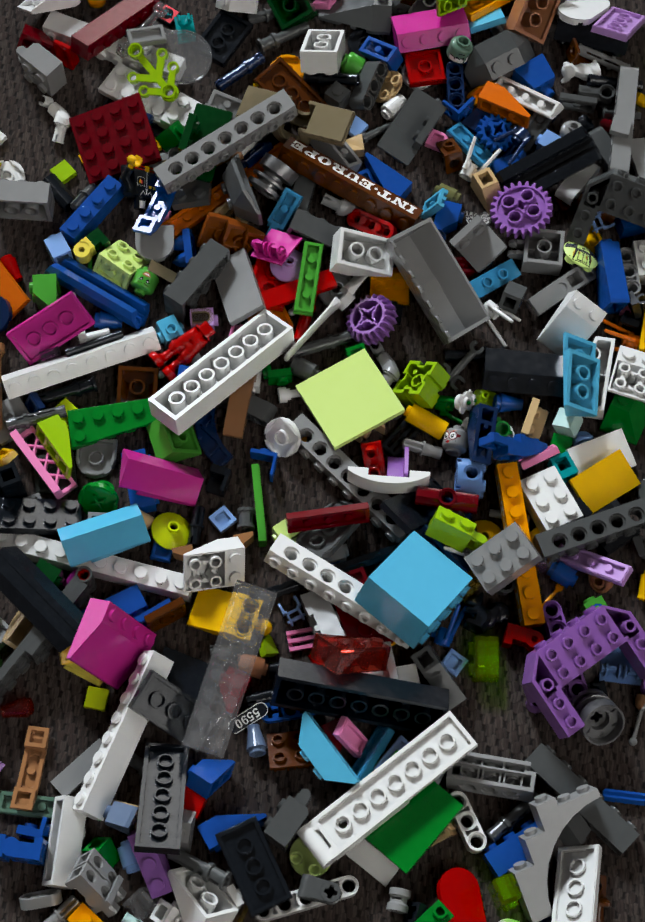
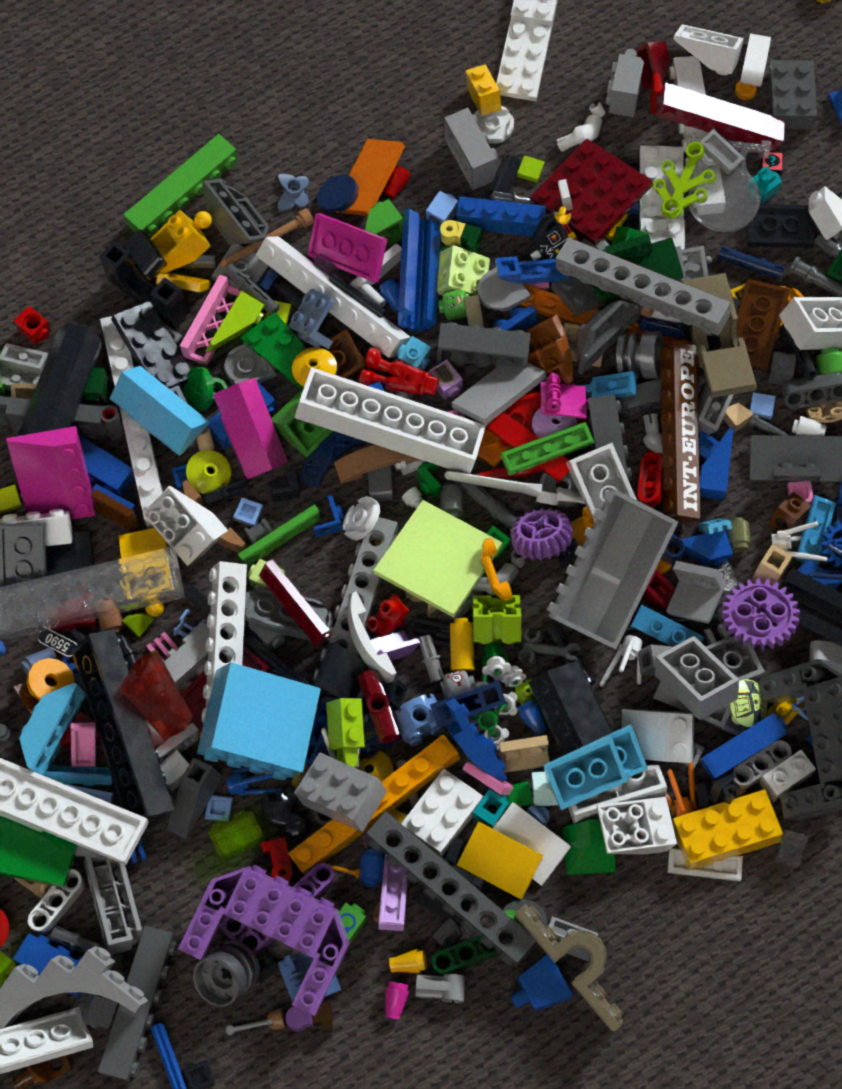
camera: 65 degrees right, 0 degrees up
(95, 383) = (309, 318): none -> sand blue bracket
(111, 154) = (565, 196): none -> white tile
(135, 413) = (301, 363): none -> yellow dish
(277, 727) = (48, 668): none -> light orange tile
(367, 358) = (501, 589): none -> light orange bar
(550, 272) = (697, 677): none -> light grey brick

